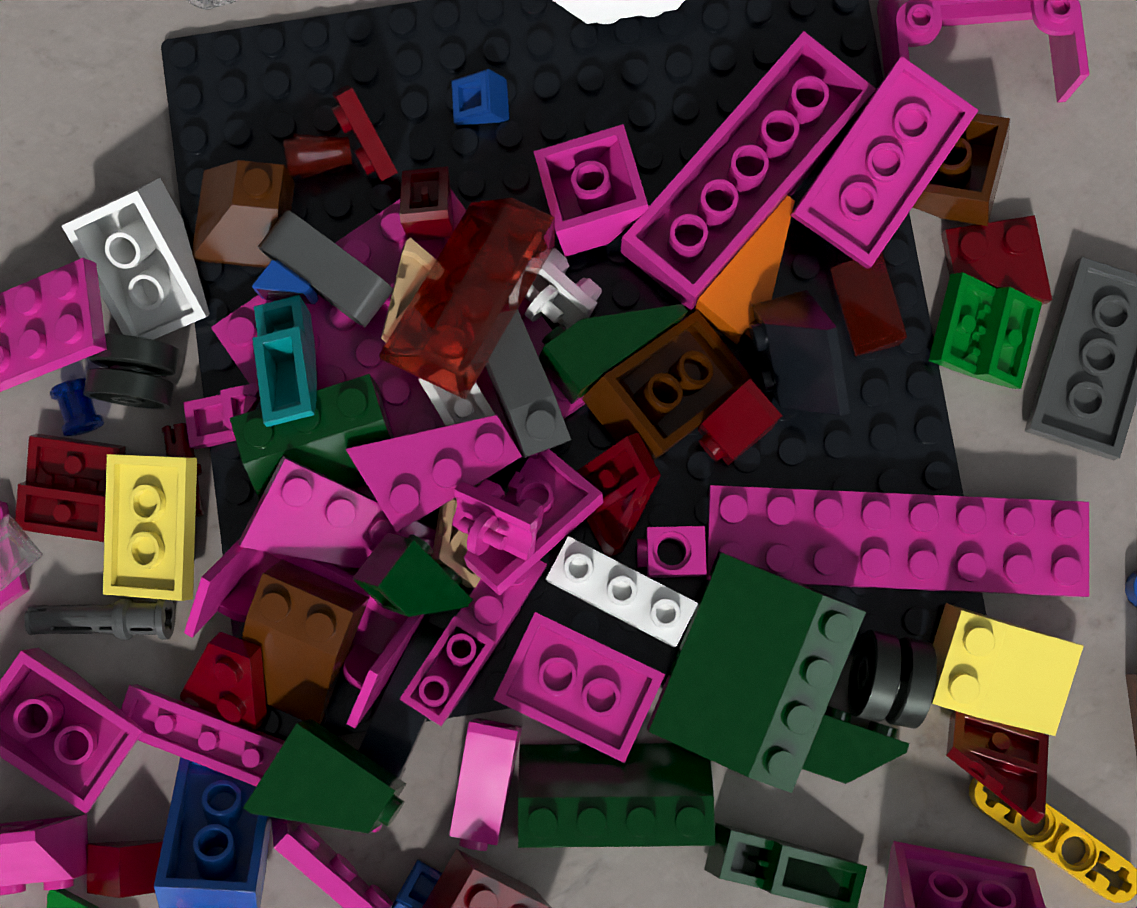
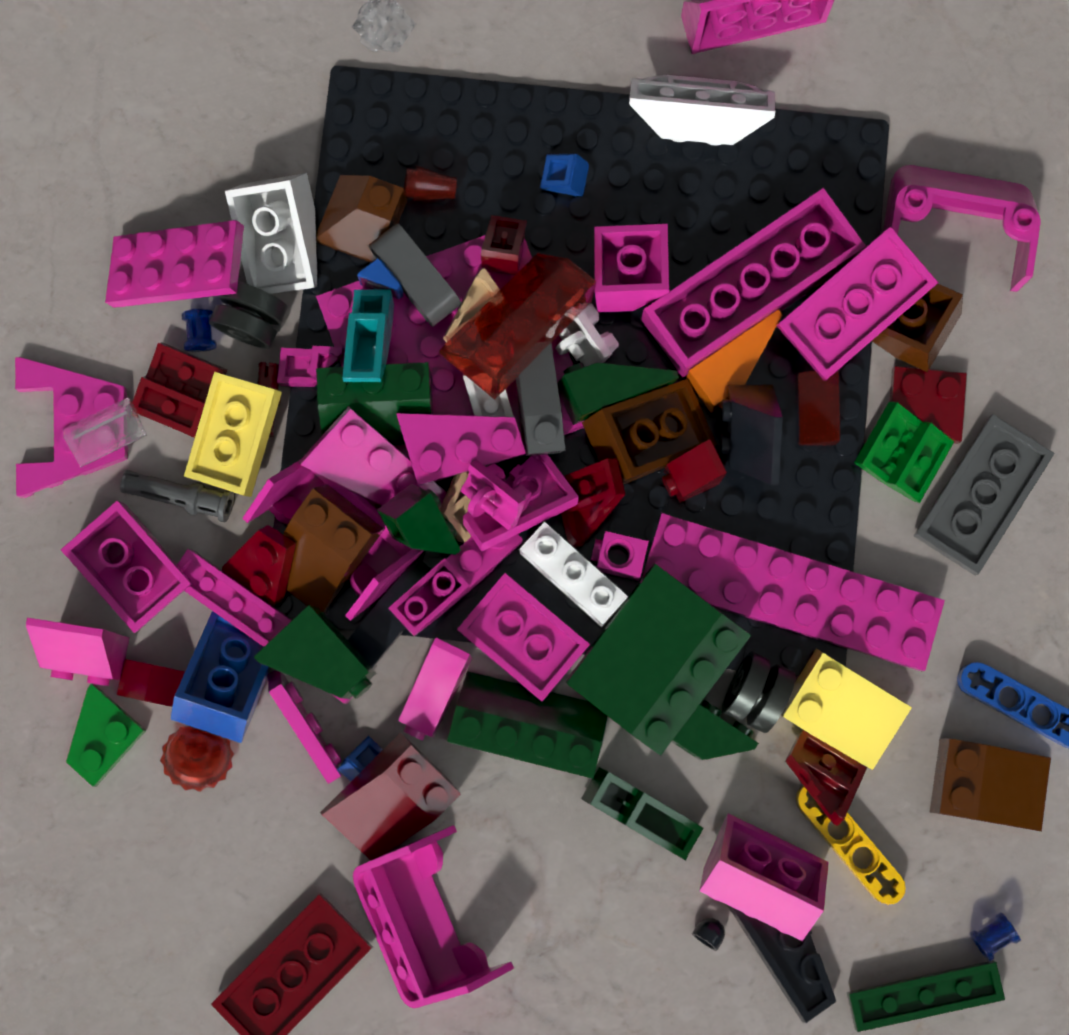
camera: 10 degrees right, 0 degrees up
(353, 117) = (464, 165): dark red wing -> none

